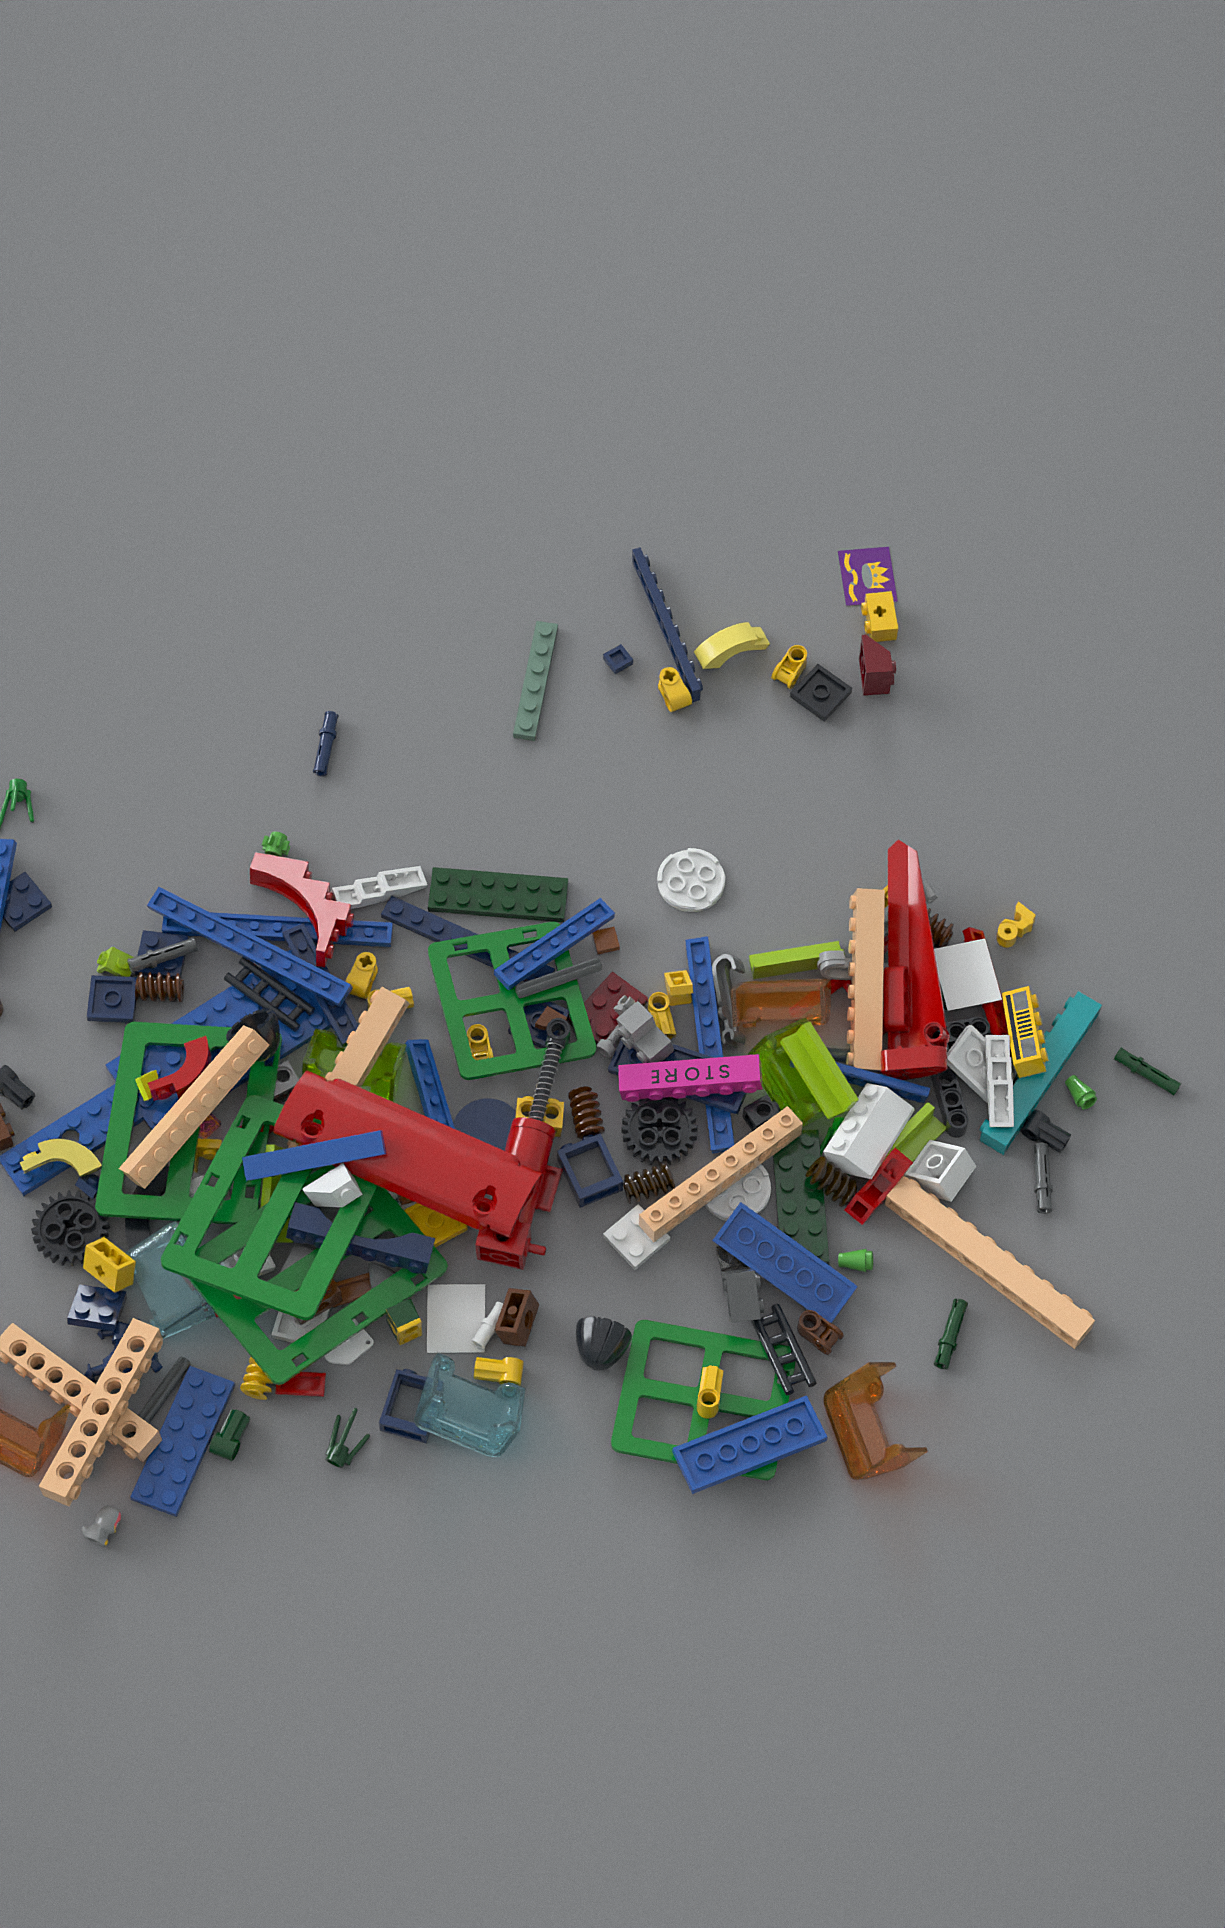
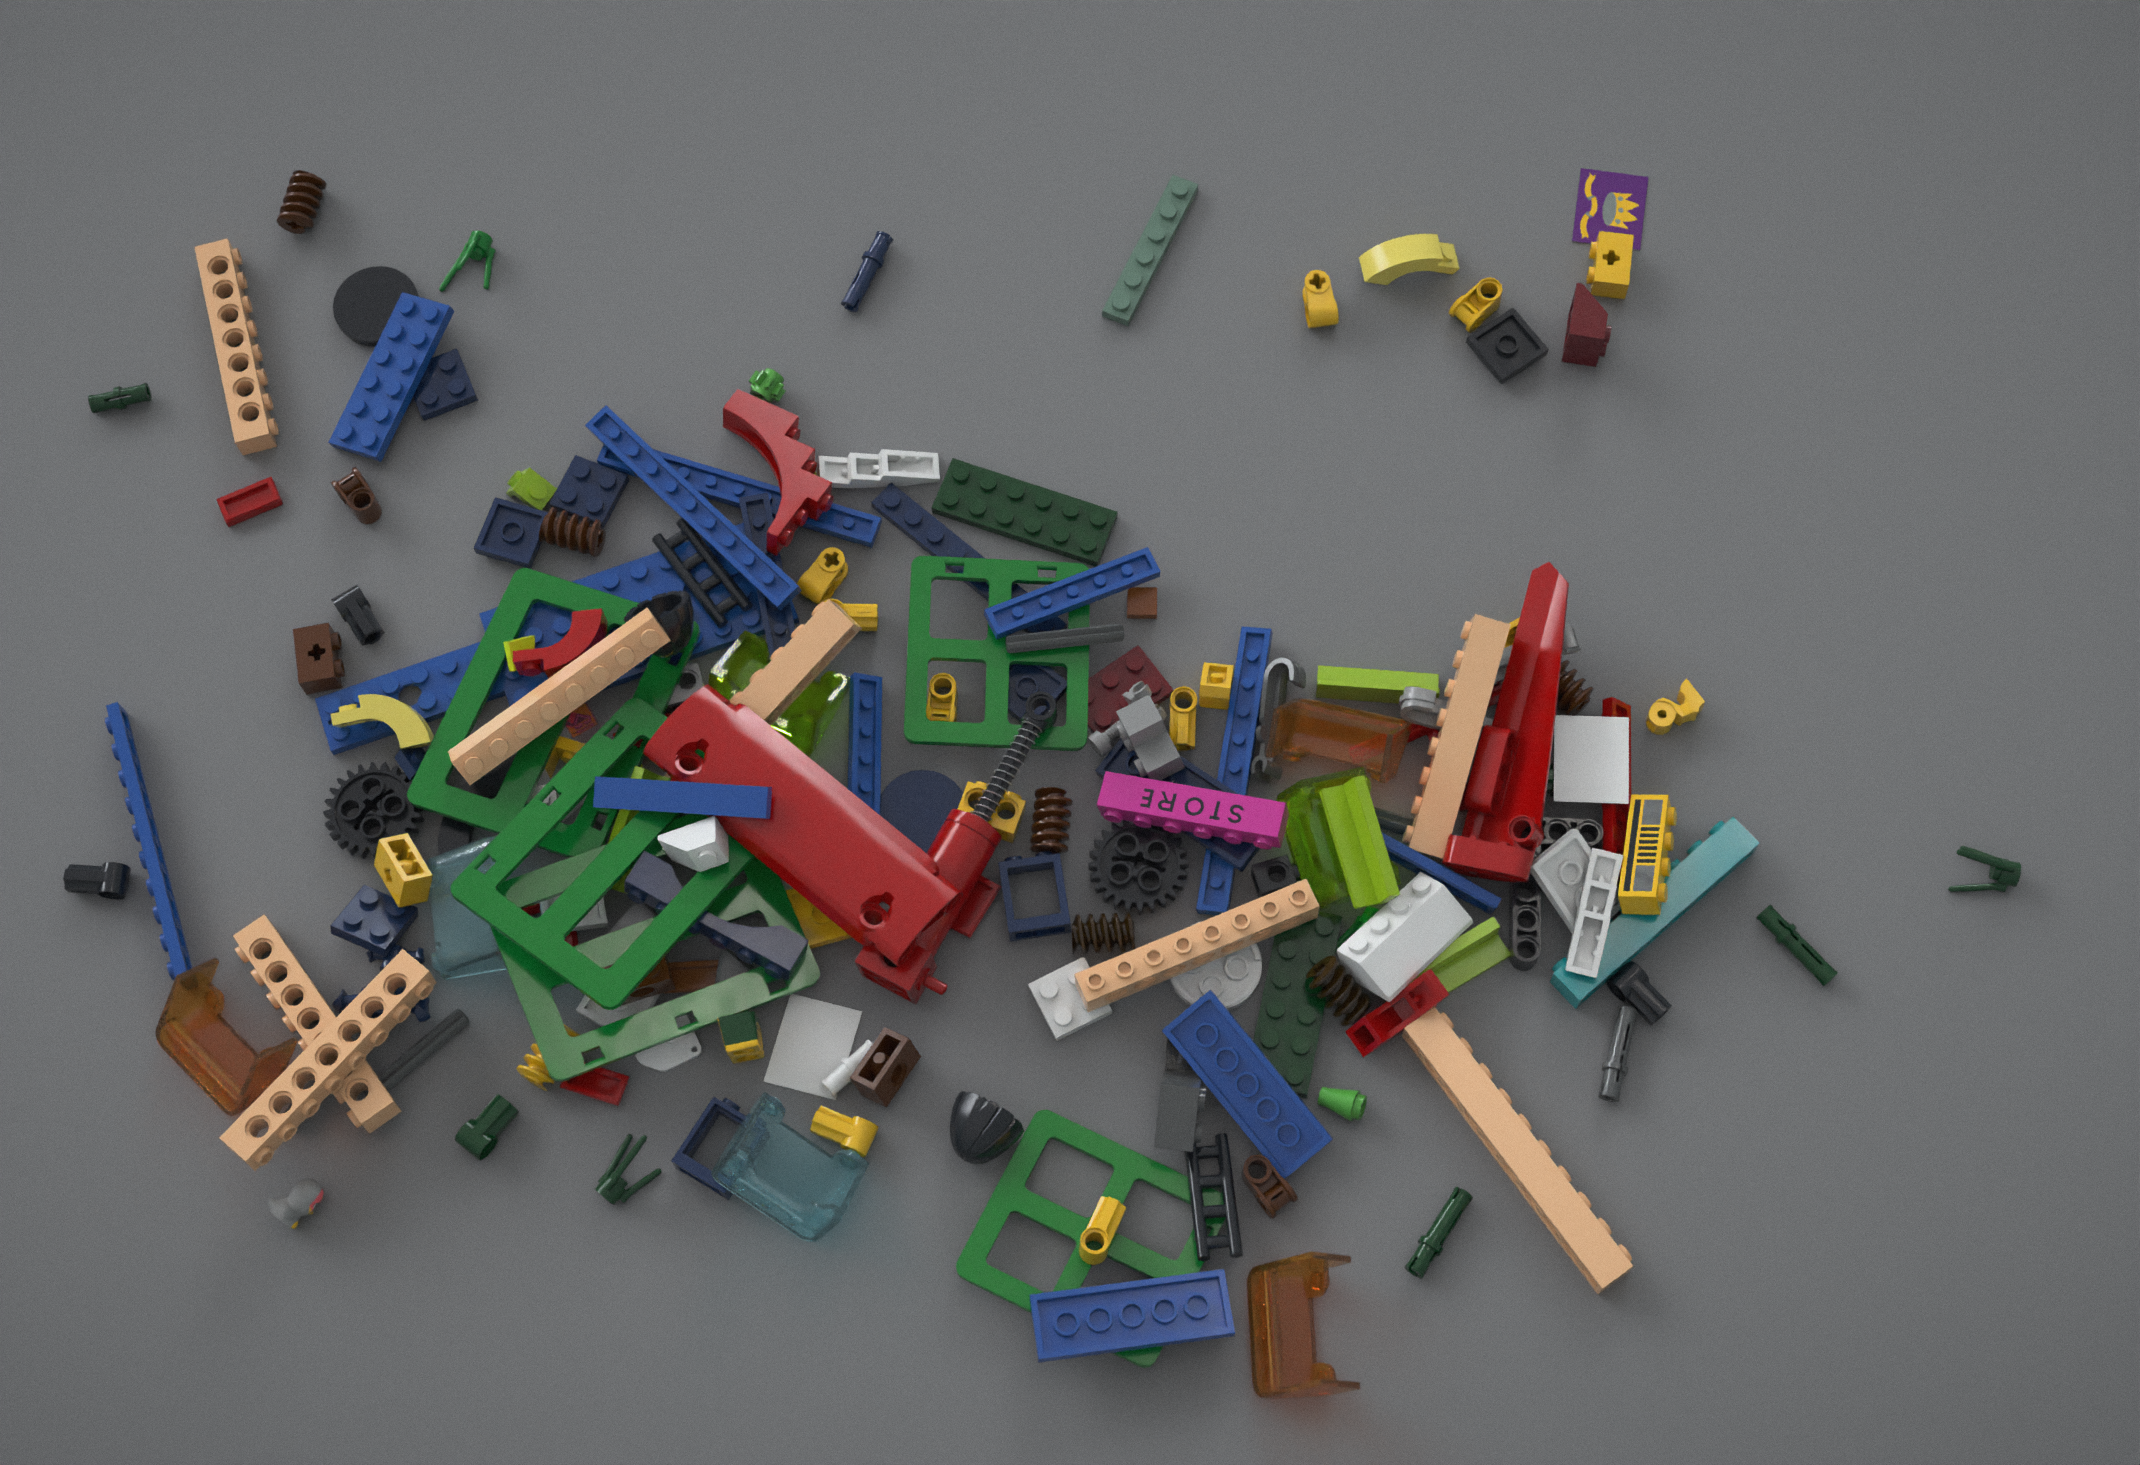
camera: 20 degrees right, 5 degrees up
(162, 955) = (585, 492): dark grey pin -> none
(184, 1441) = (429, 1118): blue plate -> none
(546, 1017) = (1036, 684): reddish brown tile -> none
(618, 659) = (1260, 245): dark blue plate -> none
(664, 615) = (1336, 223): dark blue plate -> none
(691, 880) = (1272, 550): white tile -> none
(941, 1169) = (1487, 1010): white slope -> none
(1081, 1093) = (1700, 952): bright green cone -> none

